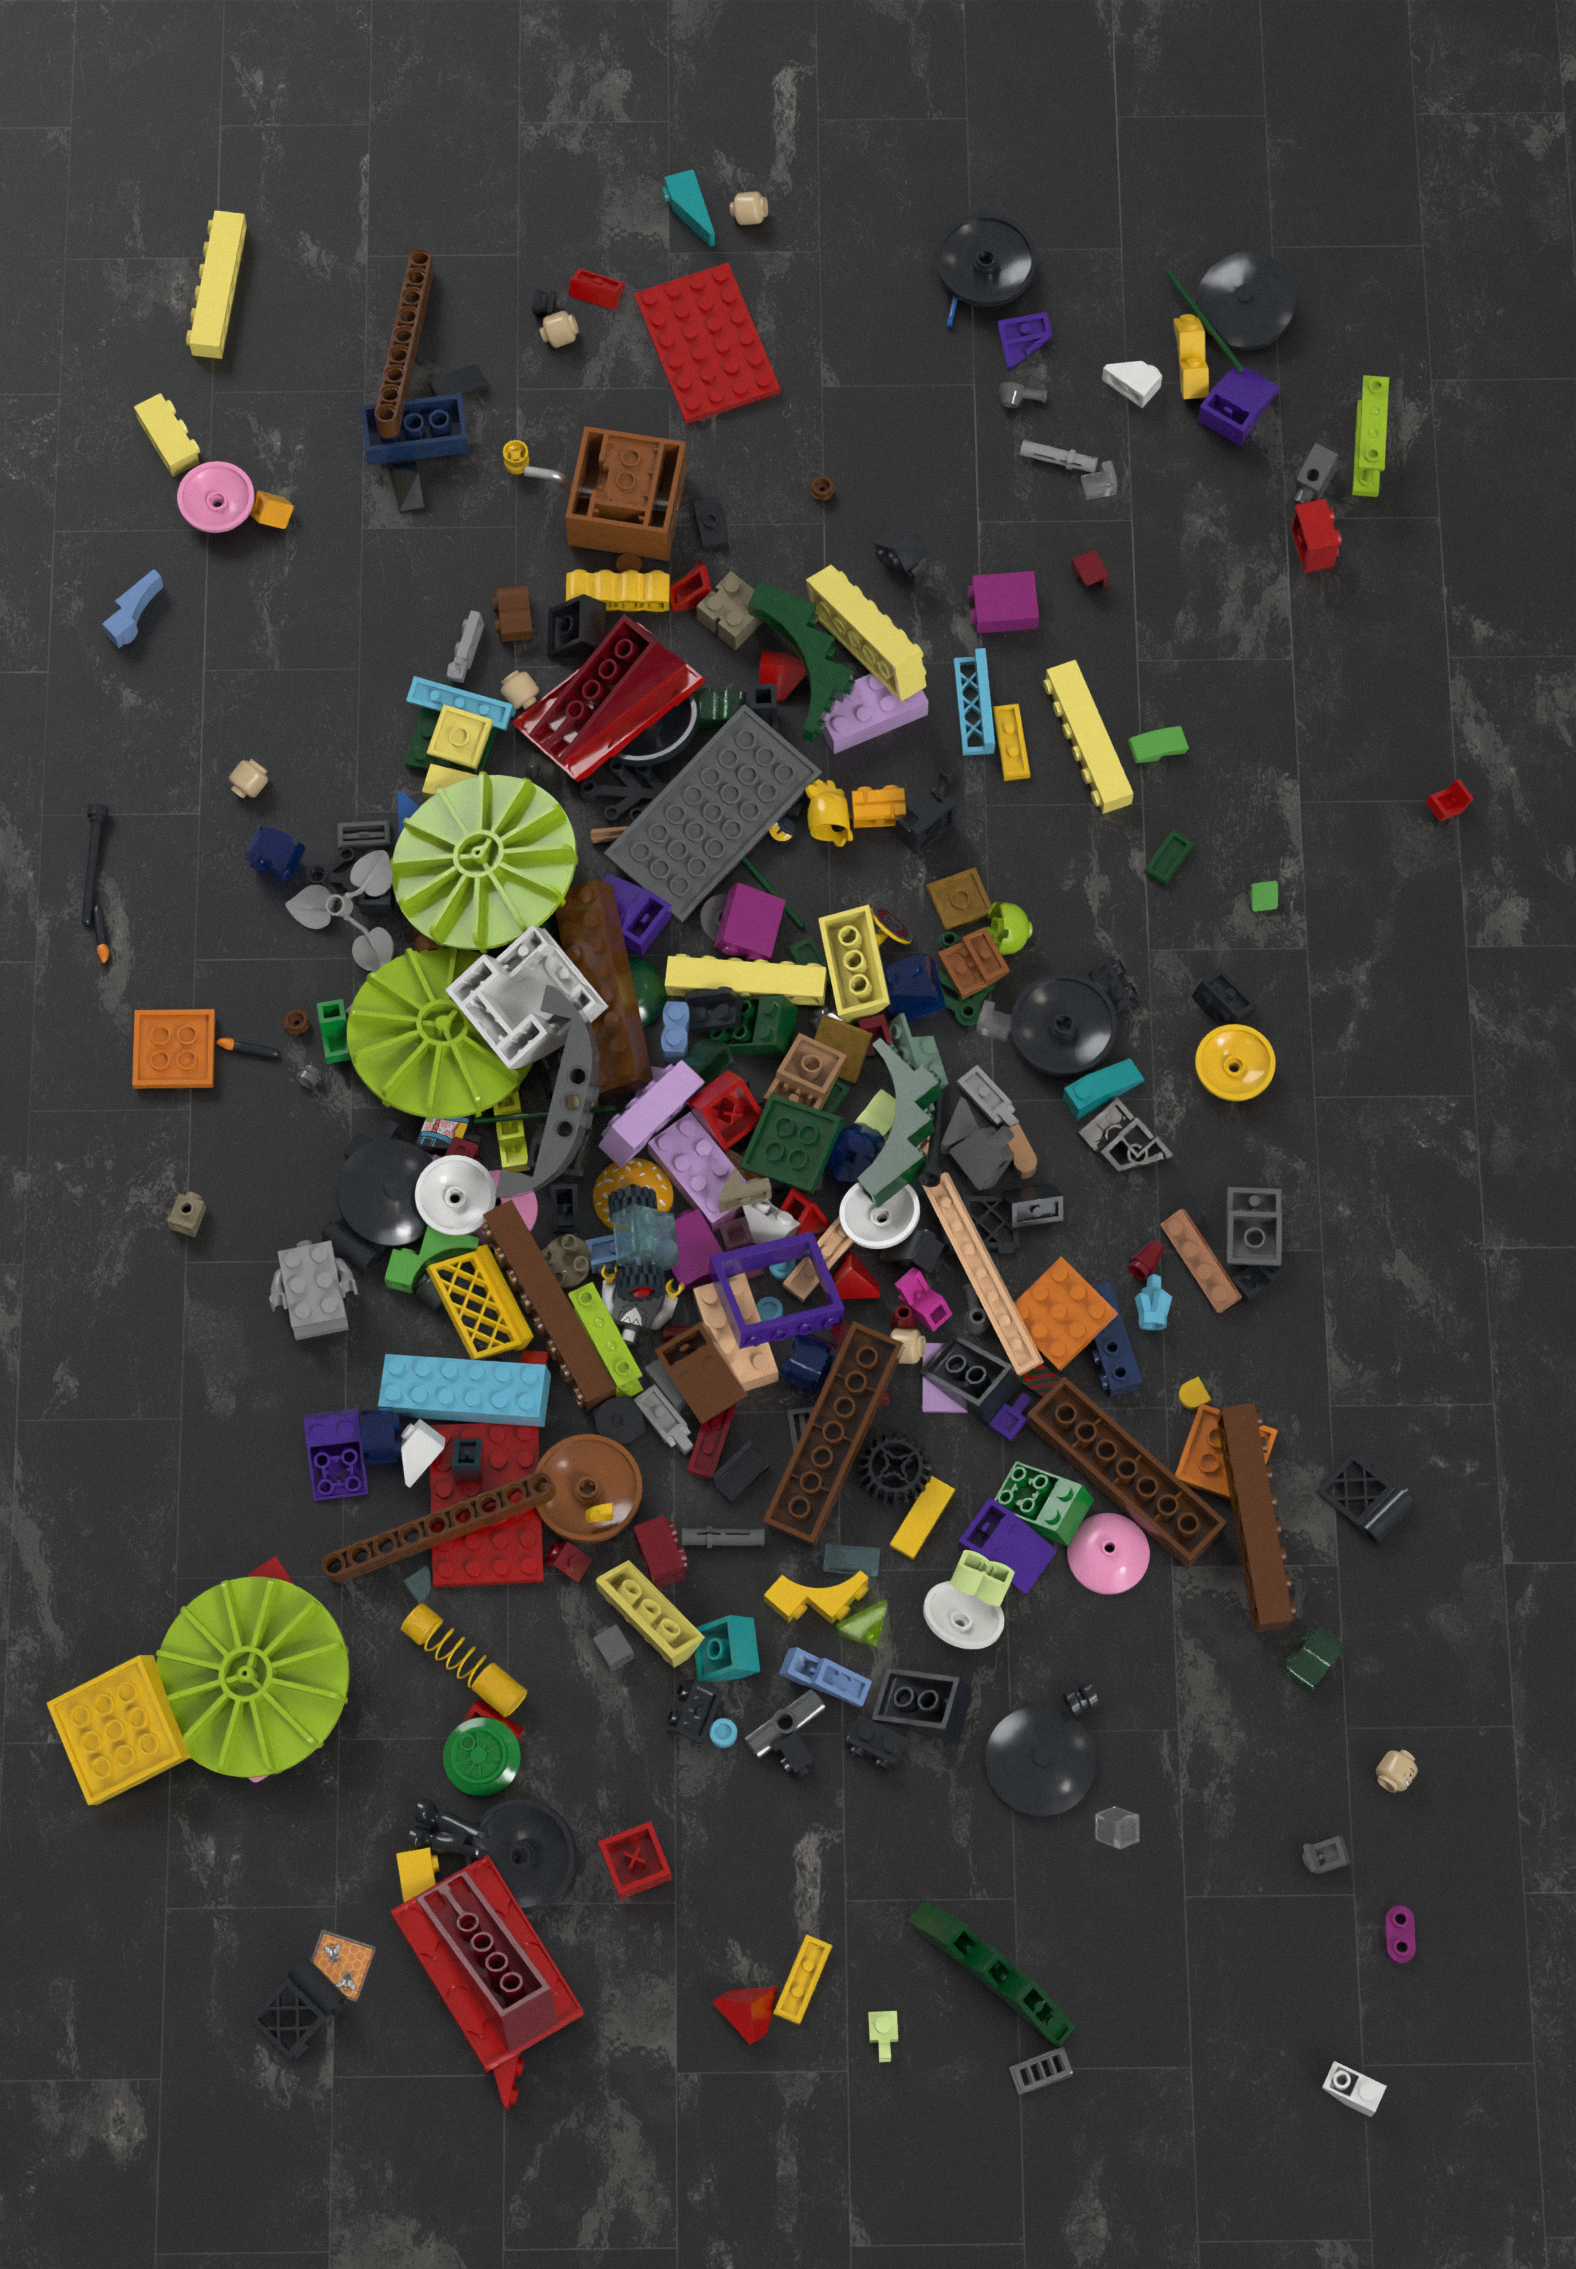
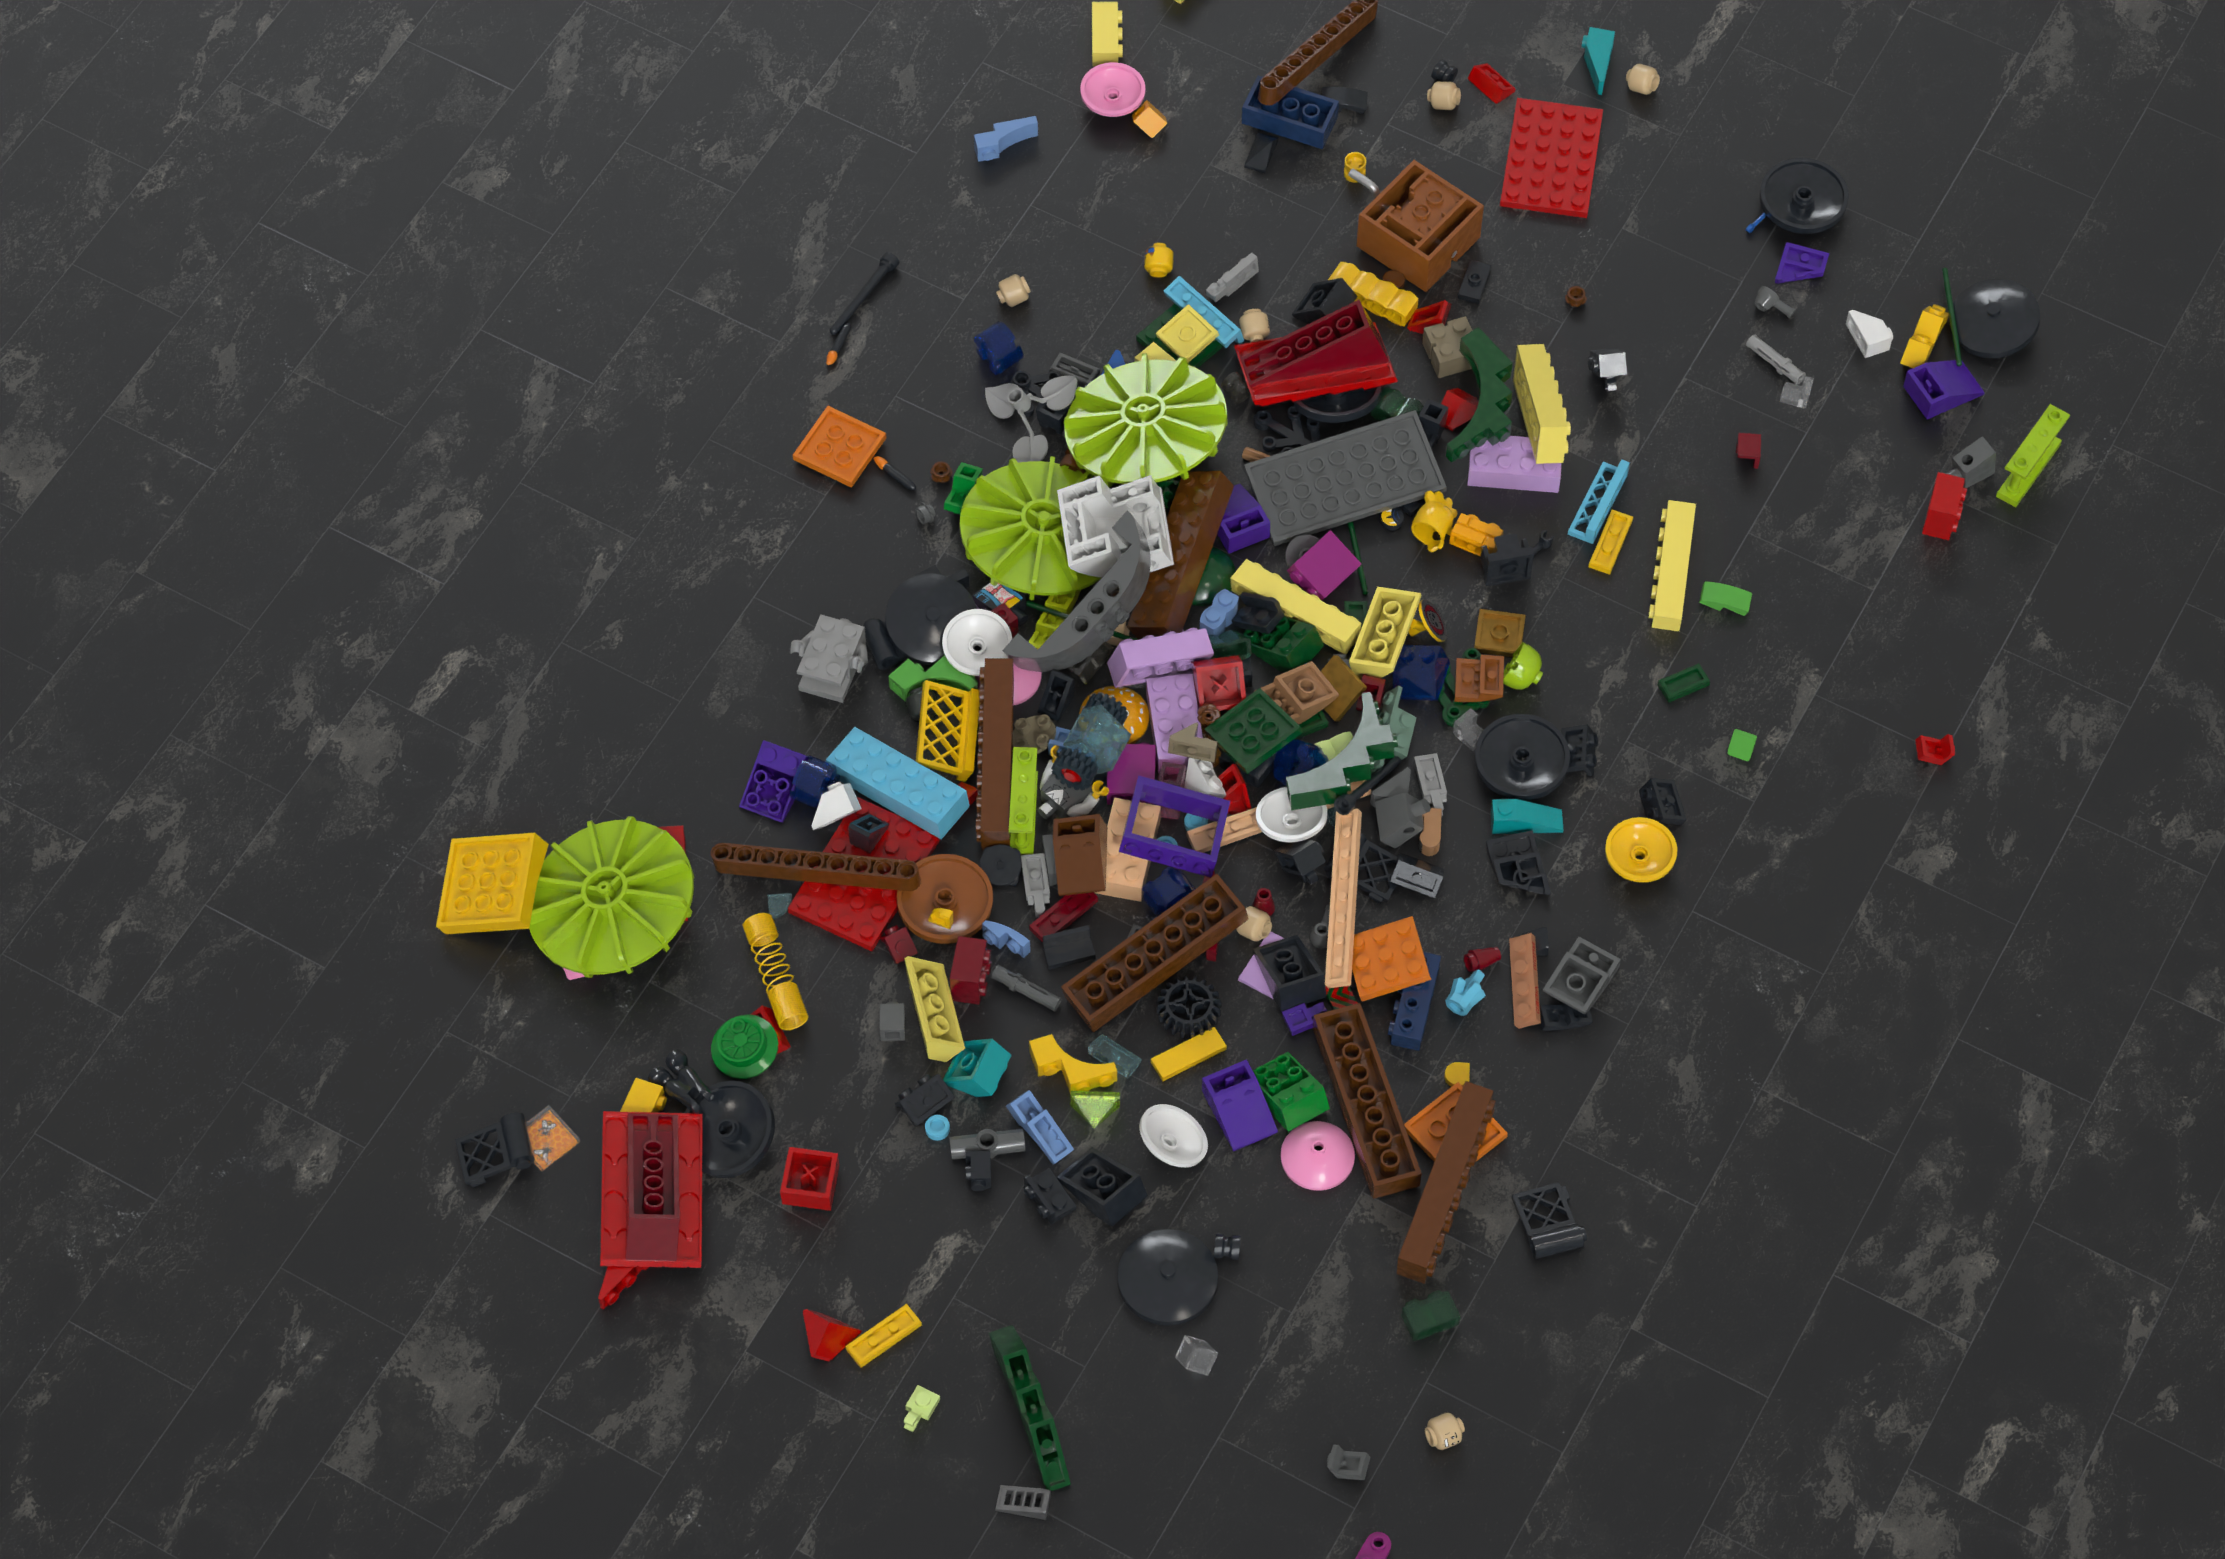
camera: 30 degrees right, 10 degrees down
(188, 1222) = (775, 562): dark tan brick -> none
(378, 666) = (1158, 260): none -> yellow head
(513, 613) = (1284, 272): reddish brown brick -> none
(661, 1496) = (1001, 935): none -> medium blue slope
(730, 1145) = (1204, 710): none -> reddish brown plate
(854, 1279) = (1243, 857): red slope -> none
(925, 1303) = (1286, 896): dark pink brick -> none
(982, 1578) = (1203, 1115): yellowish green brick -> none
(1003, 602) = (1666, 440): magenta brick -> none

